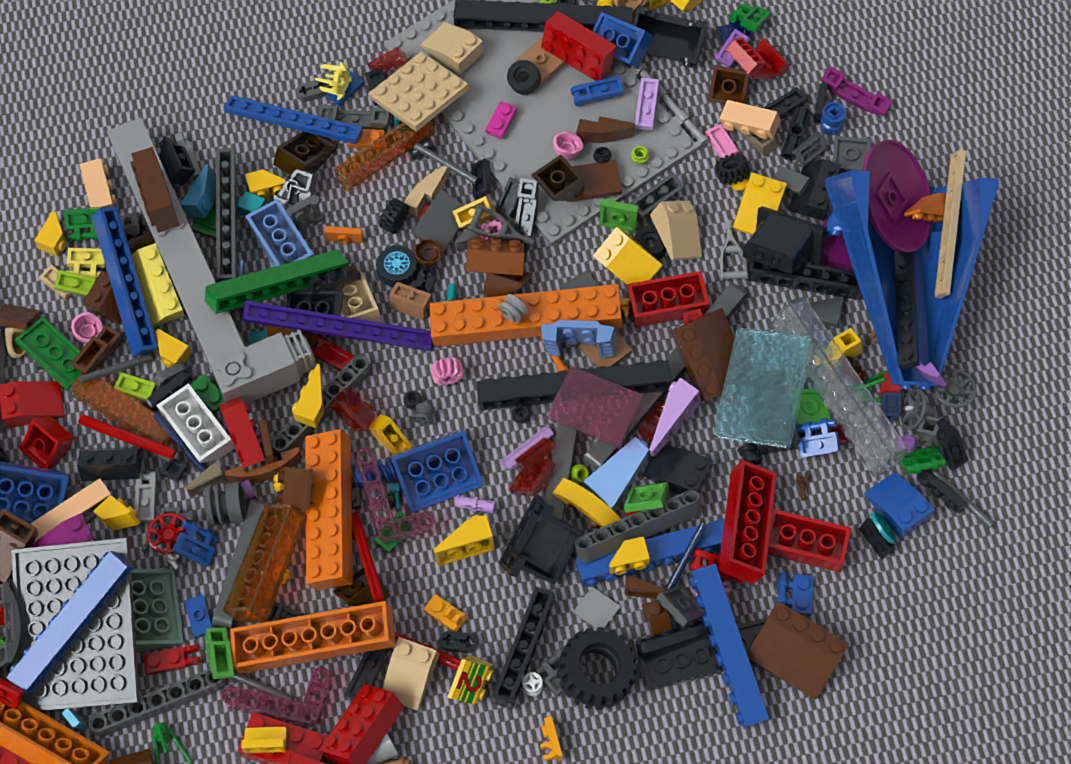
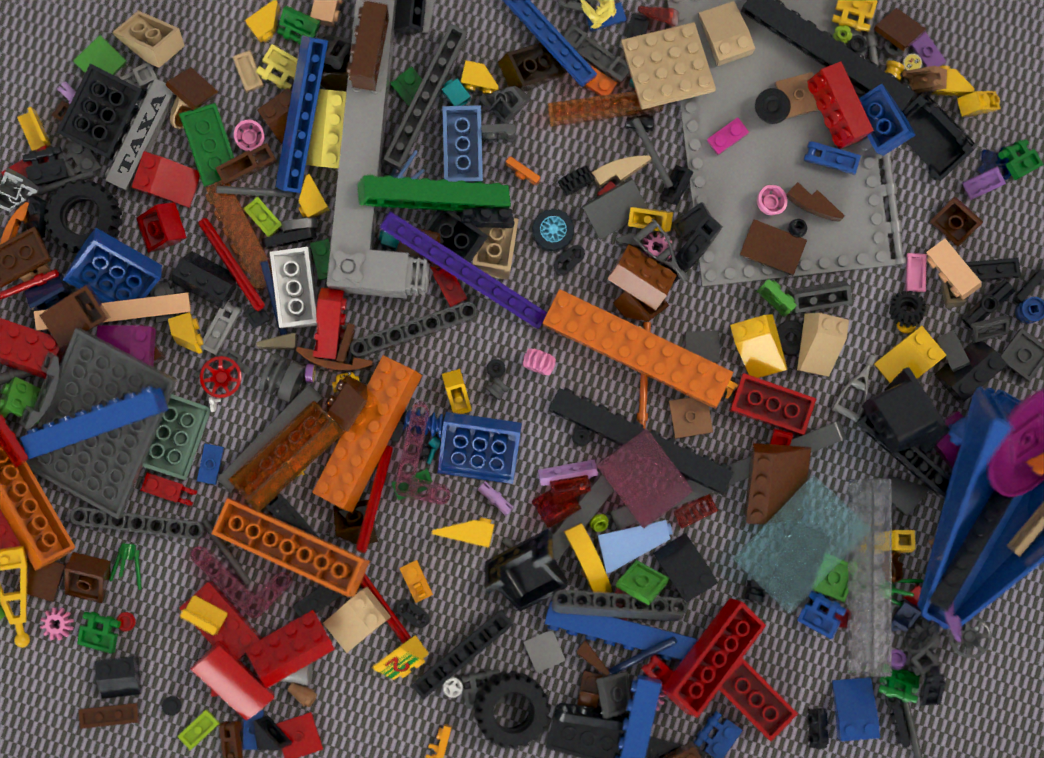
camera: 25 degrees right, 20 degrees up
(73, 283) = (259, 84): lime plate -> none
(74, 719) = (62, 498): medium azure tile -> none
(193, 549) = (235, 404): blue plate -> none
(201, 194) = (416, 58): dark azure slope -> none
(219, 653) = (207, 514): bright green slope -> none
(311, 403) = (403, 329): yellow slope -> none
(352, 409) = (437, 353): clear red slope -> none
(409, 300) = (545, 271): medium nougat hinge -> none
(428, 252) = (586, 236): reddish brown hair -> none
(452, 293) = (584, 288): teal arm -> none
(513, 308) = (625, 345): light grey wheel -> none
(559, 179) = (741, 237): dark brown slope -> none
(579, 332) = (646, 388): medium blue plate -> none
(631, 555) = (595, 629): yellow slope -> none
(640, 150) = (832, 240): lime plate -> none
(646, 104) = (869, 198): lavender plate -> none
(679, 406) = (717, 515): lavender wedge -> none
(759, 63) = (998, 213): red plate -> none
(802, 482) = (783, 643): reddish brown hand -> none
(883, 527) = (827, 725): teal wheel -> none

